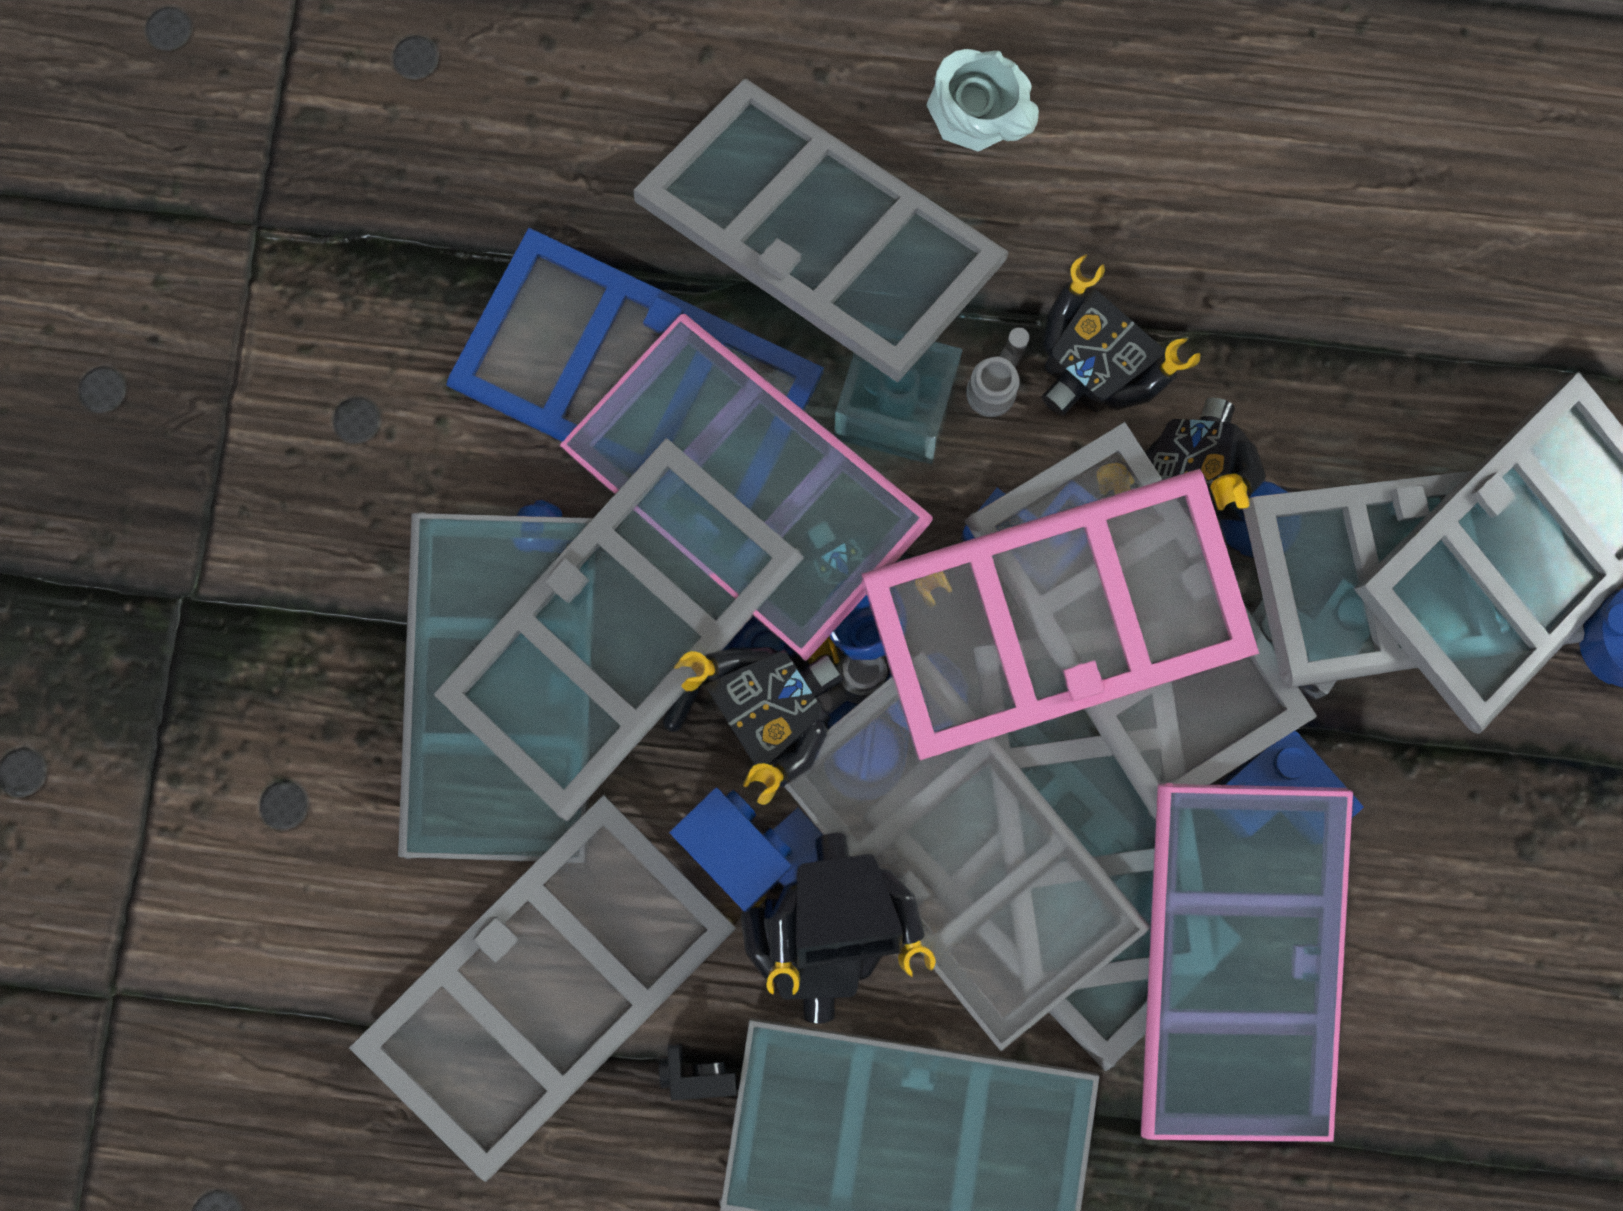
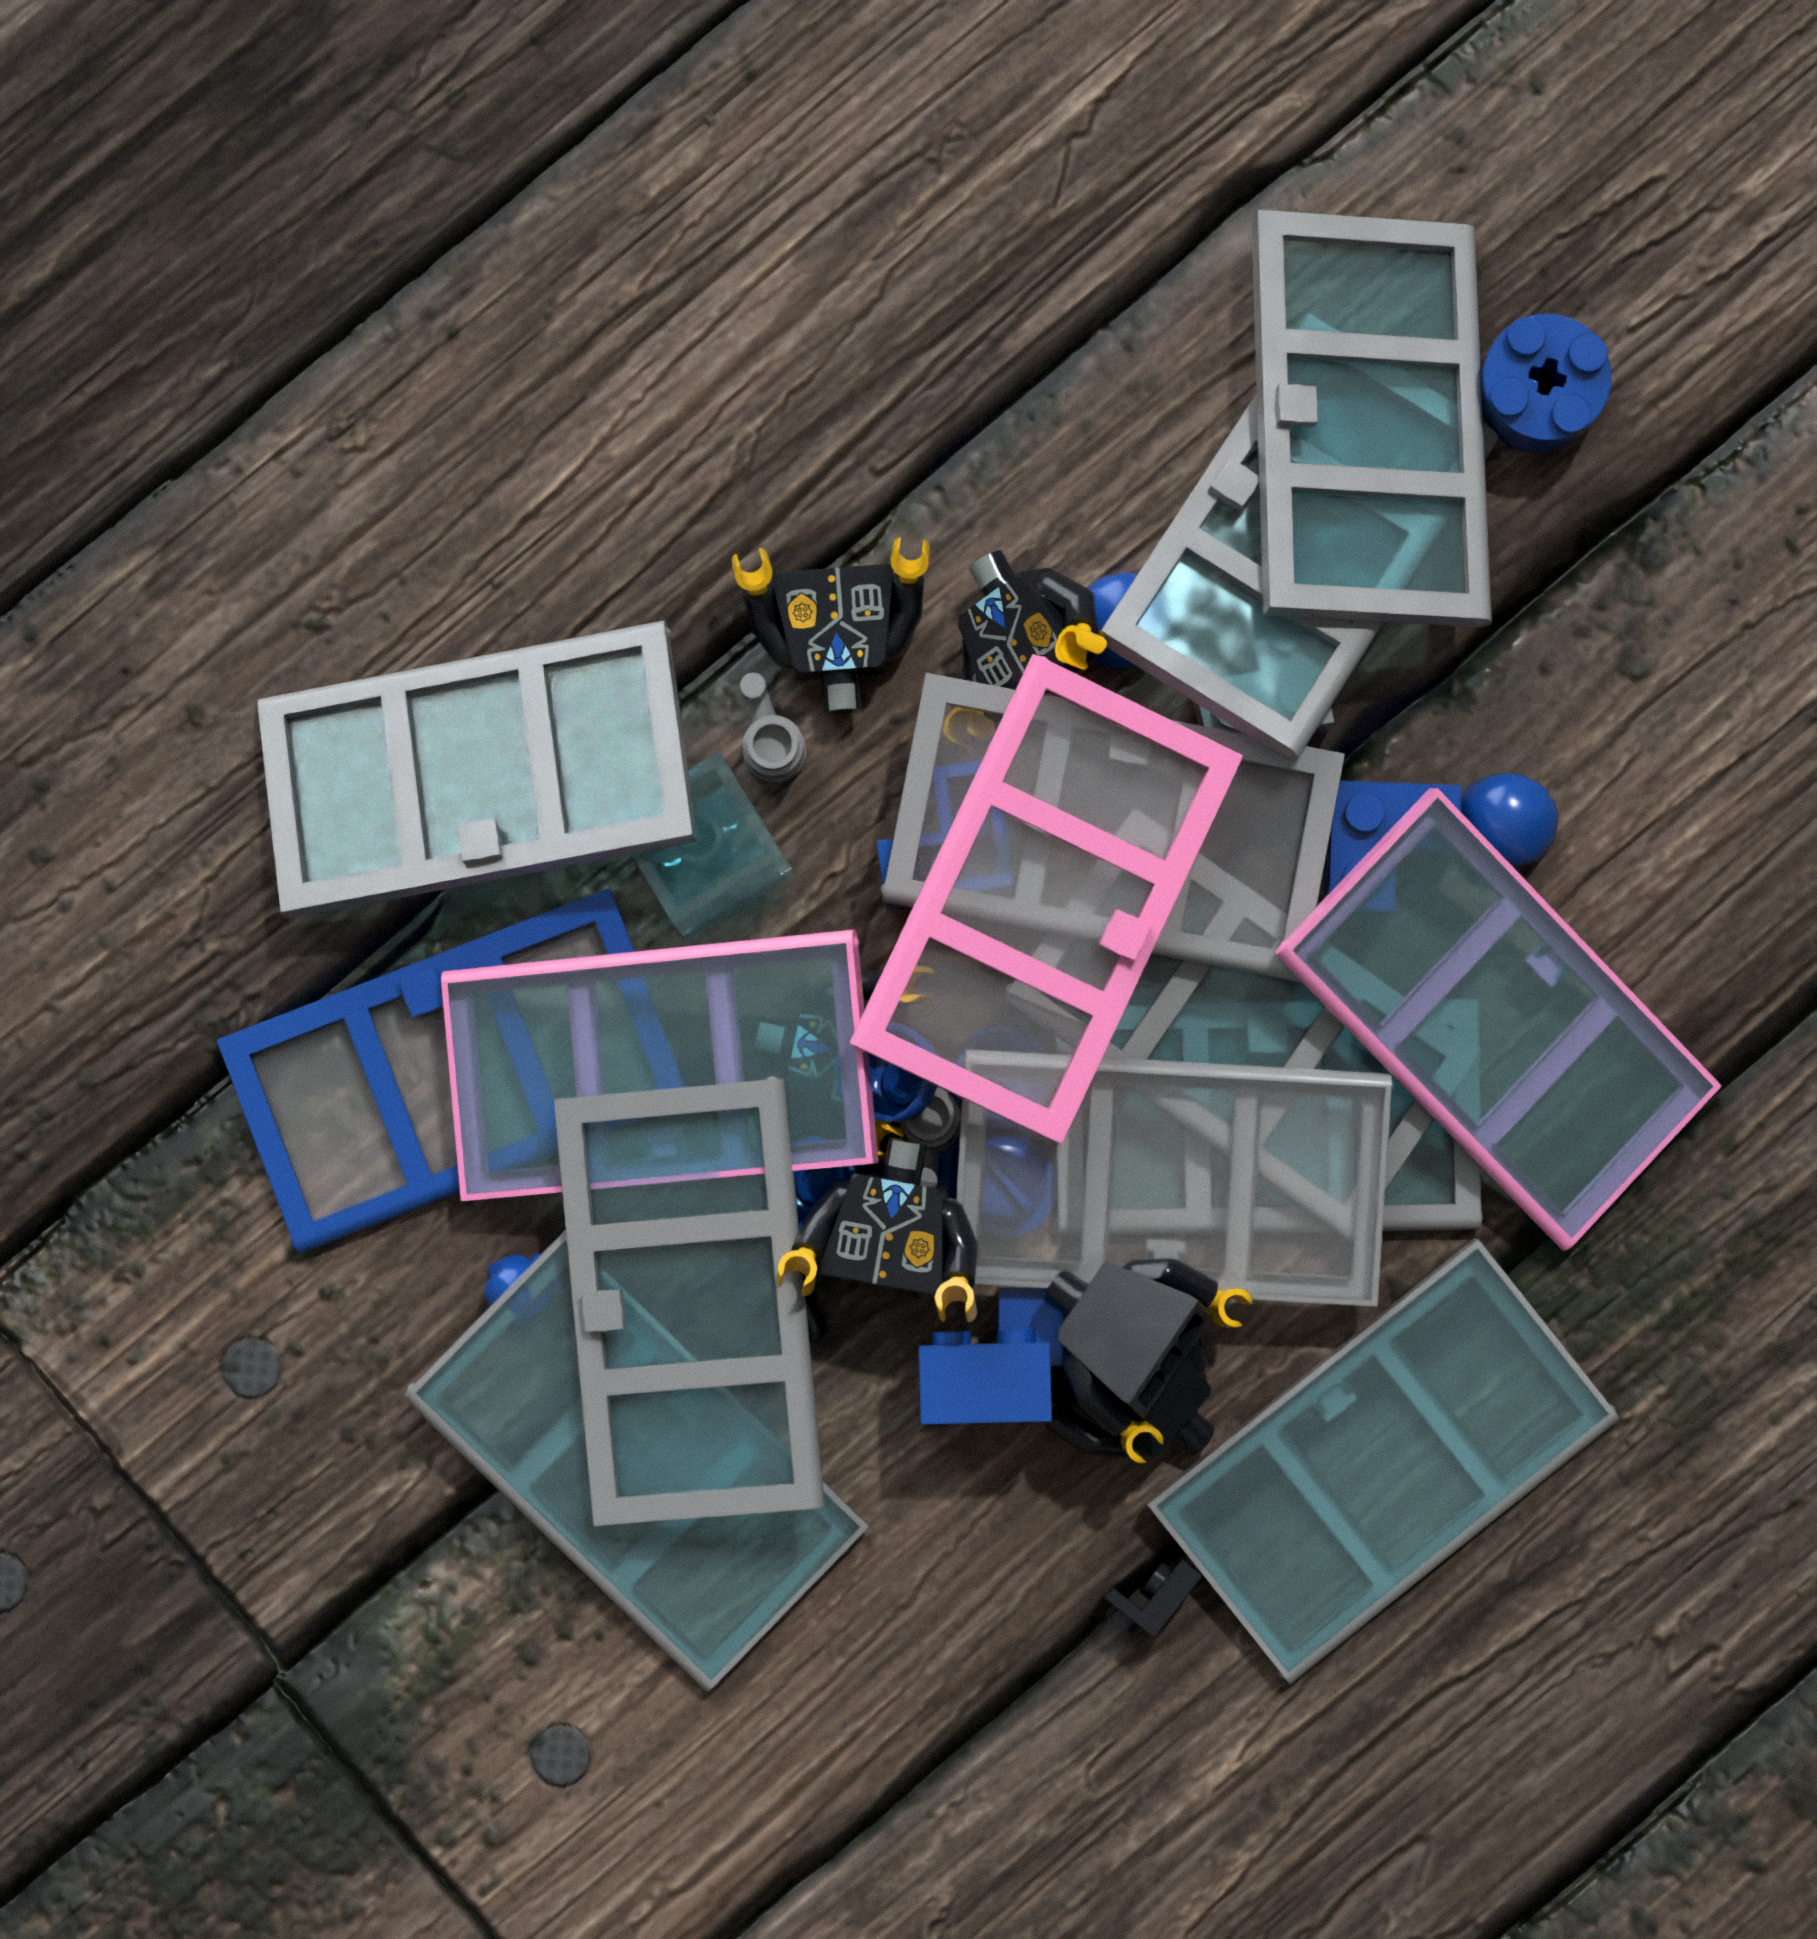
camera: 45 degrees left, 5 degrees up
(543, 988) = (948, 1662): door -> none
(981, 100) = (491, 501): light aqua piece -> none
(1375, 858) = (1512, 815): none -> blue hair

